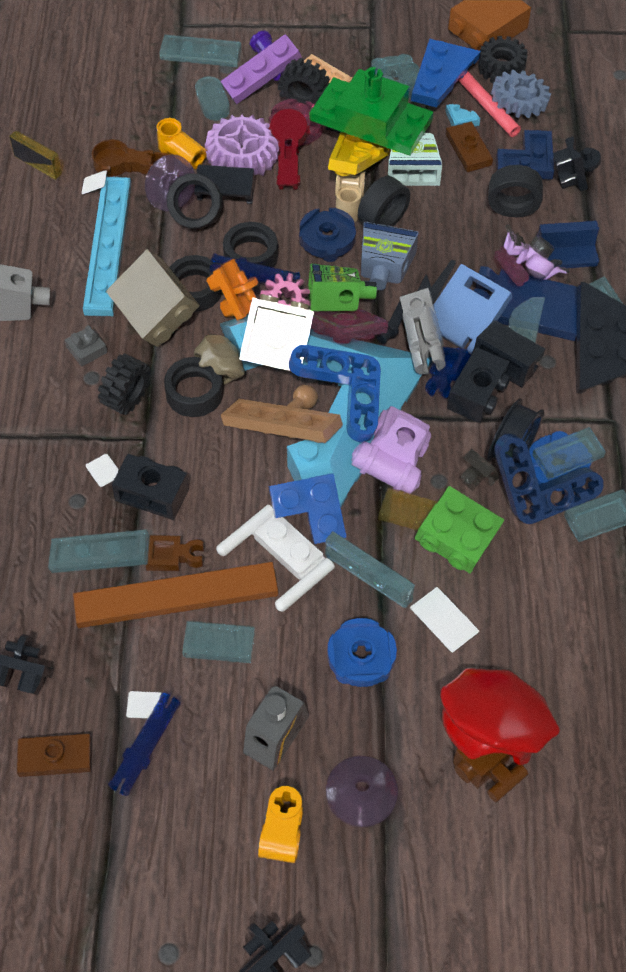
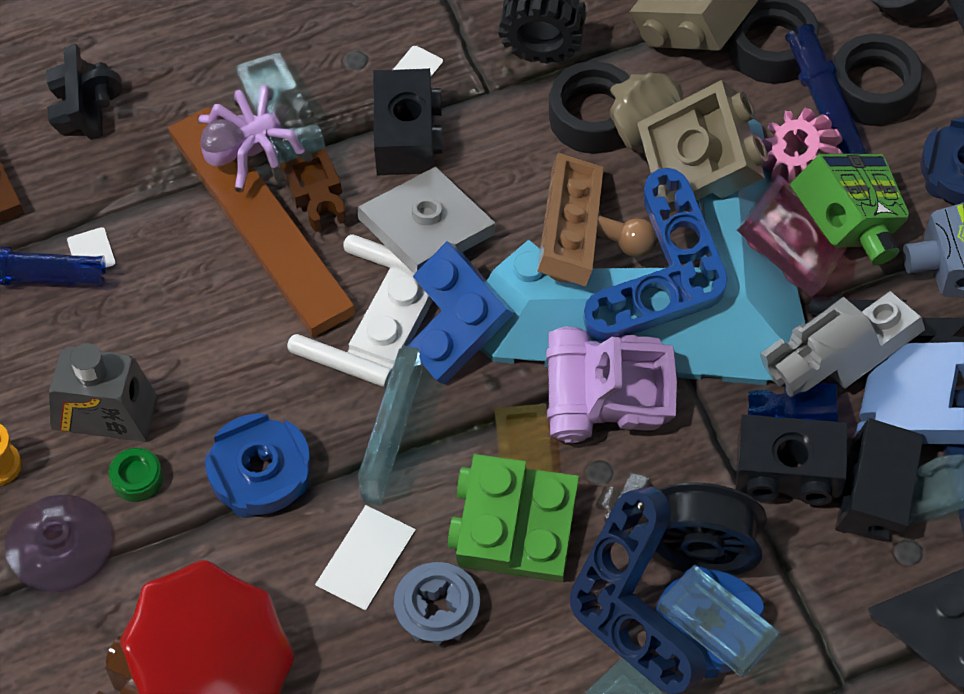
camera: 70 degrees right, 0 degrees up
(122, 570) = (245, 136): none -> animal
(218, 642) = (210, 294): clear light blue tile -> none
(231, 501) = (423, 216): none -> light grey plate
(235, 287) = (774, 75): orange hips -> none
(334, 728) = (135, 474): none -> green tile
(495, 576) = (430, 582): none -> sand blue gear

